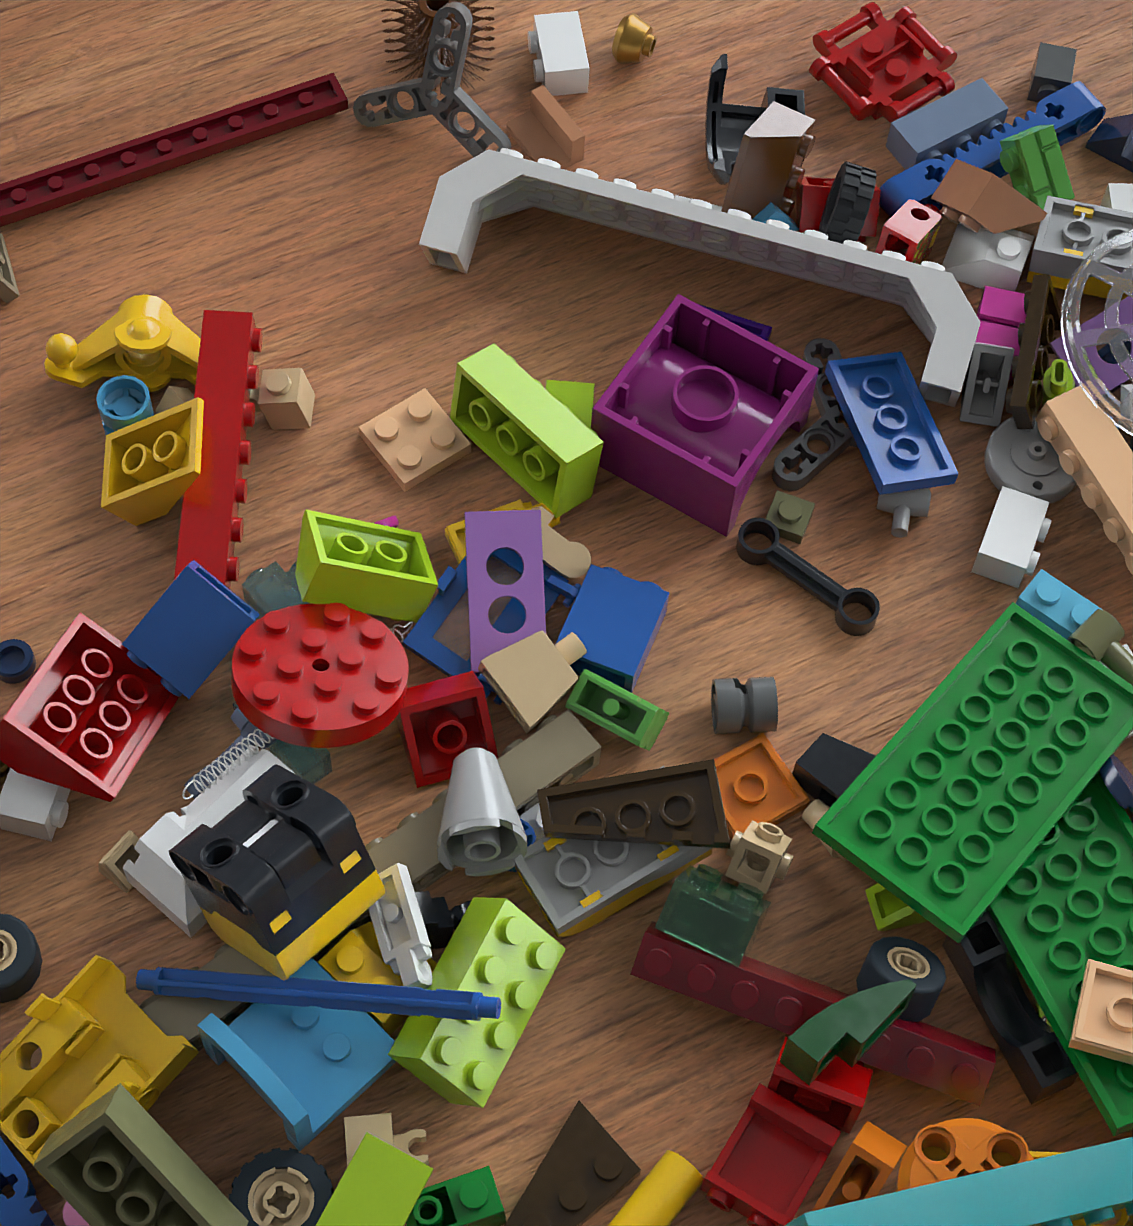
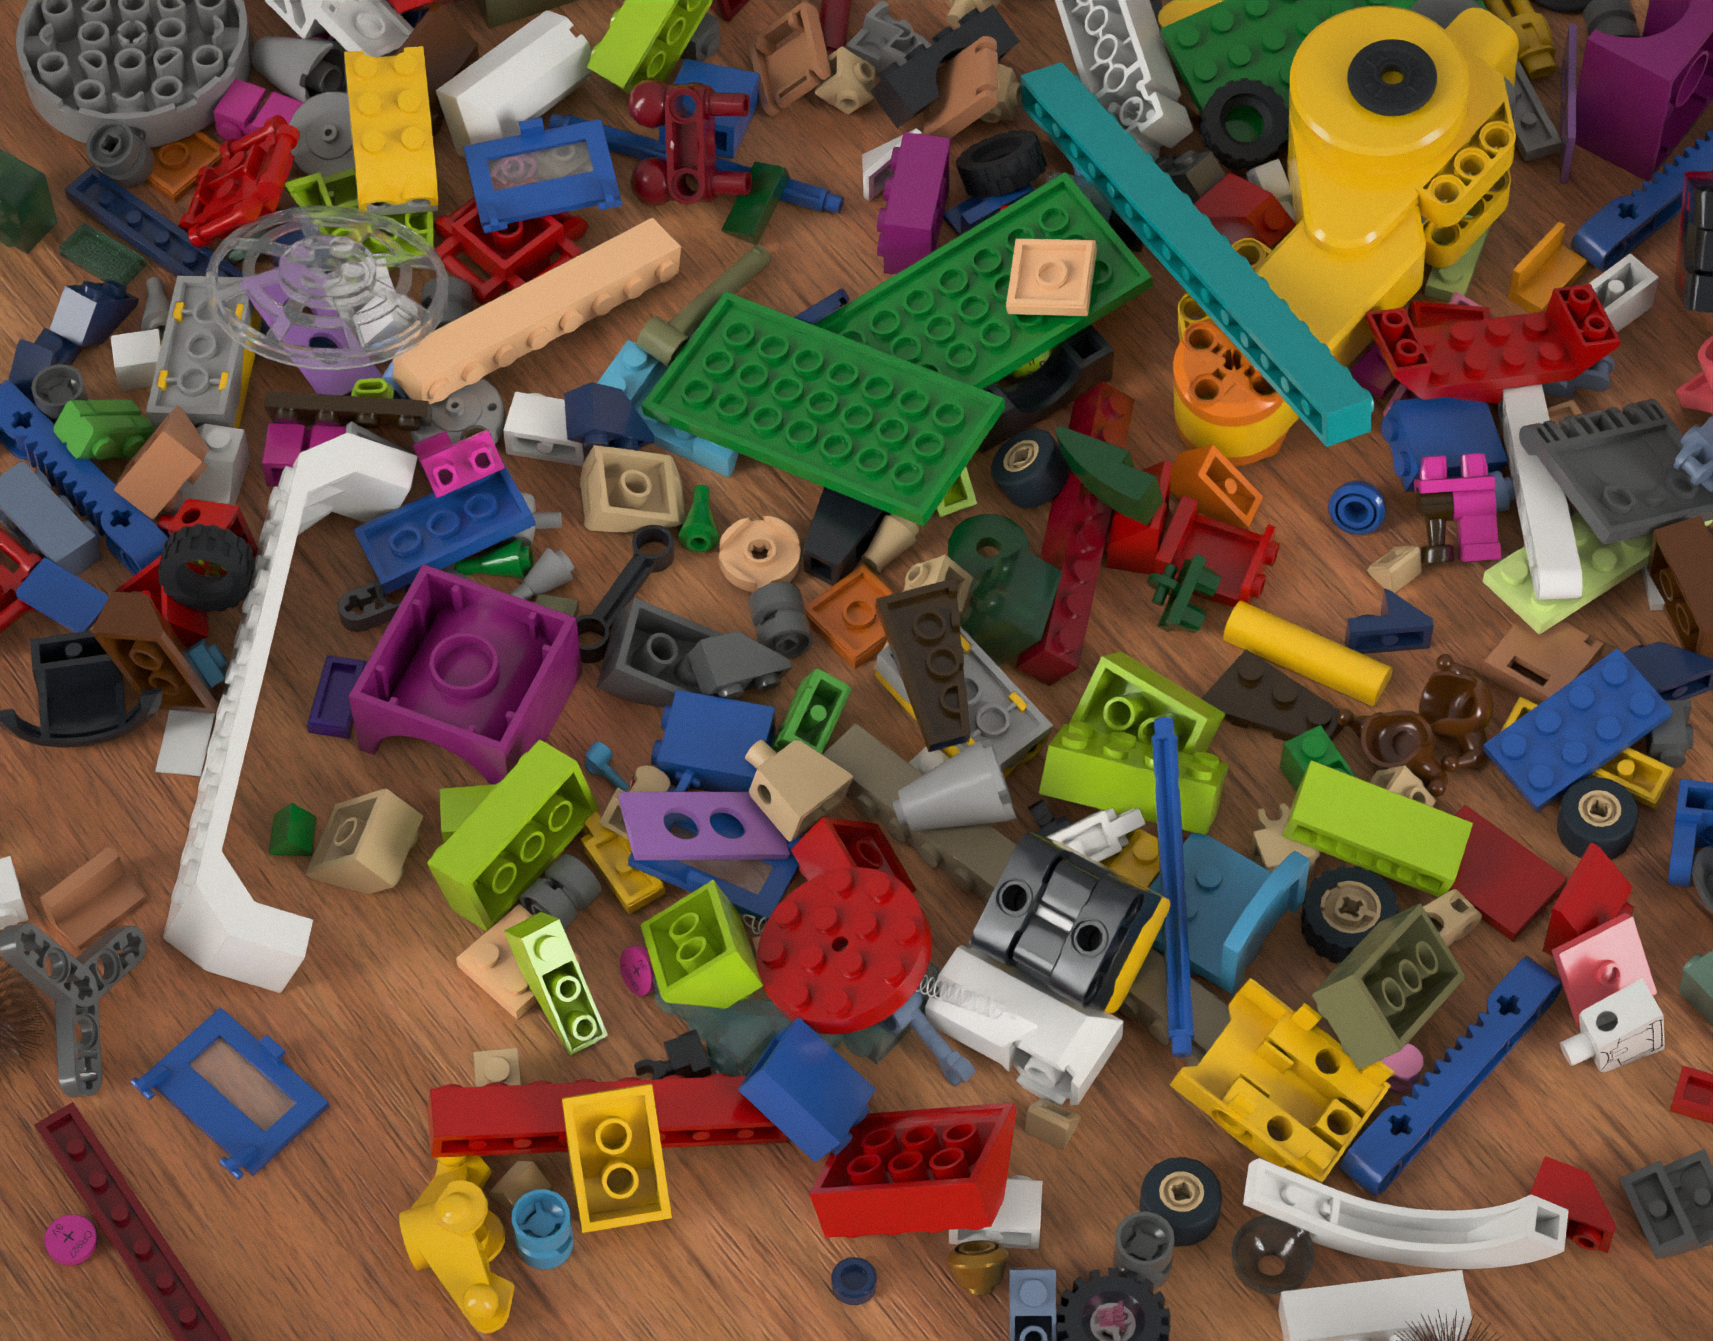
camera: 95 degrees left, 5 degrees down
(227, 93) = (70, 1239): none -> dark pink piece
(270, 544) = (684, 1058): none -> black piece
(336, 218) = (235, 1092): none -> blue piece
(374, 447) = (556, 980): none -> lime slope
(469, 475) = (566, 889): none -> dark grey wheel
(556, 332) = (366, 843): none -> tan slope
(572, 1042) = (1131, 696): none -> lime slope
(586, 285) = (292, 832): none -> green slope
(616, 529) = (597, 763): none -> dark azure hand
(692, 650) = (736, 663): none -> dark grey slope
(712, 605) = (649, 654): none -> dark grey slope
(730, 1123) = (1191, 578): none -> dark green hips
(824, 906) = (980, 532): none -> dark green tile
(835, 683) = (770, 534): none -> light nougat plate
(838, 516) = (548, 573): none -> light grey cone
(855, 128) = (62, 596): none -> blue panel
(856, 485) = (506, 561): none -> green cone
(876, 654) = (699, 528): none -> green cone
(921, 600) = (630, 490): none -> tan slope
(960, 431) = (458, 464): none -> dark pink hips
(1000, 567) = (604, 418): none -> dark blue slope
(1082, 143) = (55, 387): none -> dark grey wheel

